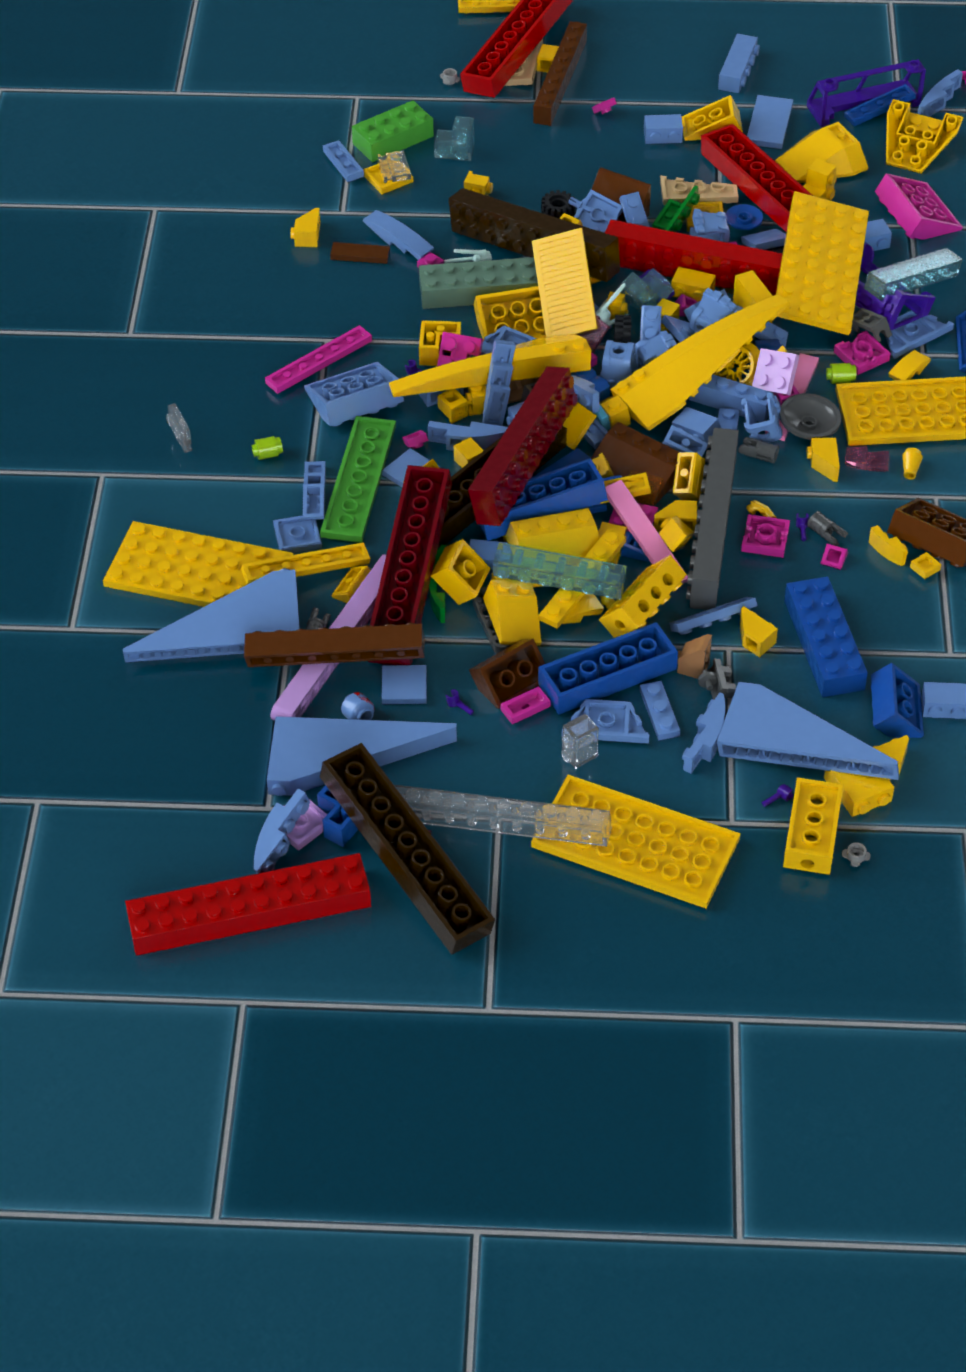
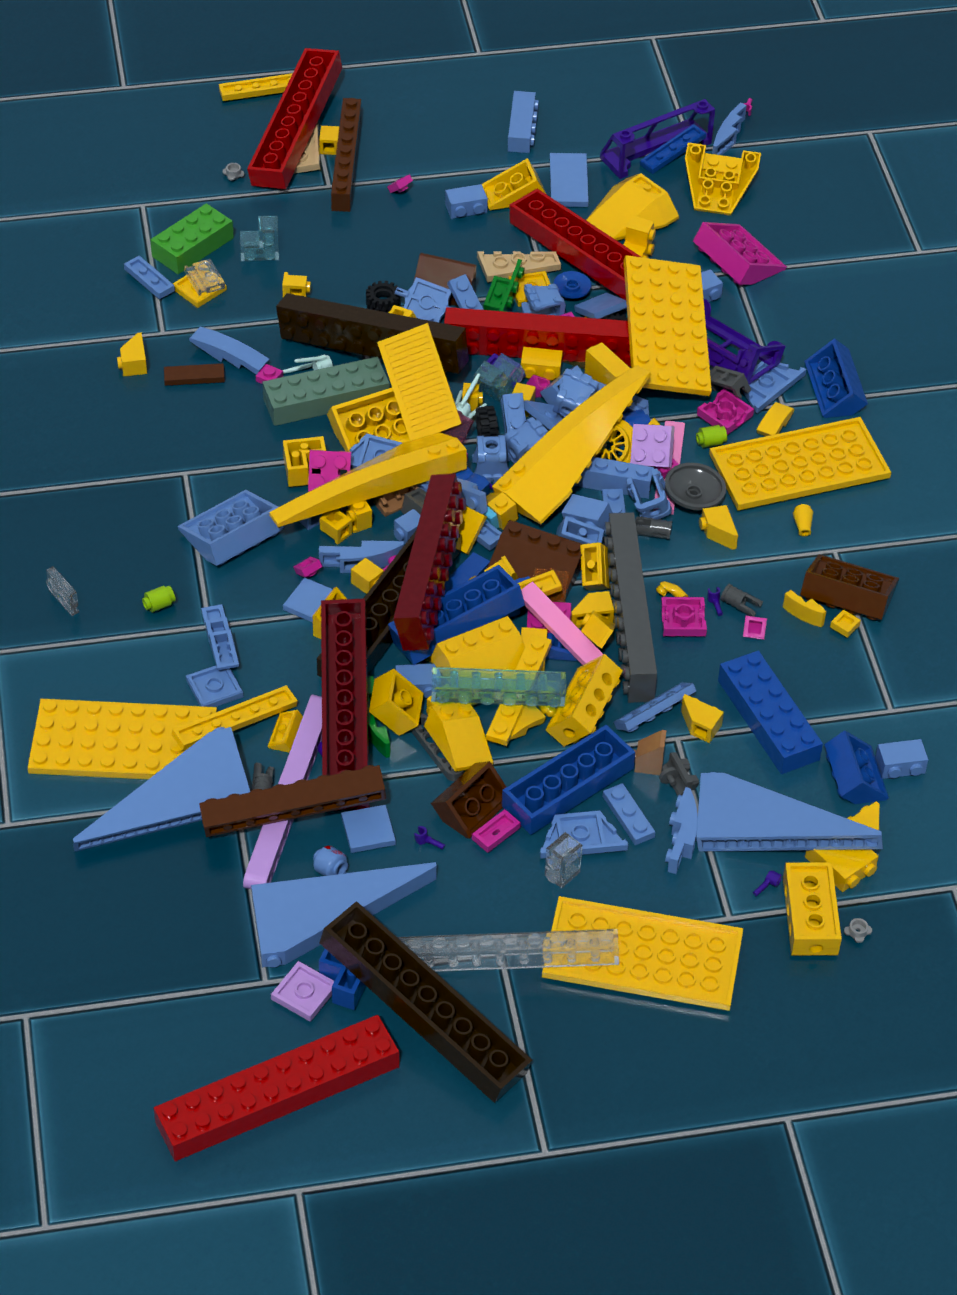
camera: 15 degrees left, 0 degrees up
(272, 839) = (285, 1015): medium blue slope -> none
(318, 359) = (184, 495): dark pink plate -> none
(358, 479) = (261, 618): bright green plate -> none
(412, 368) = (282, 492): dark purple hand -> none
(498, 382) = (381, 497): medium blue slope -> none
(862, 459) = (759, 523): clear pink slope -> none
(913, 273) = (755, 323): clear light blue brick -> none

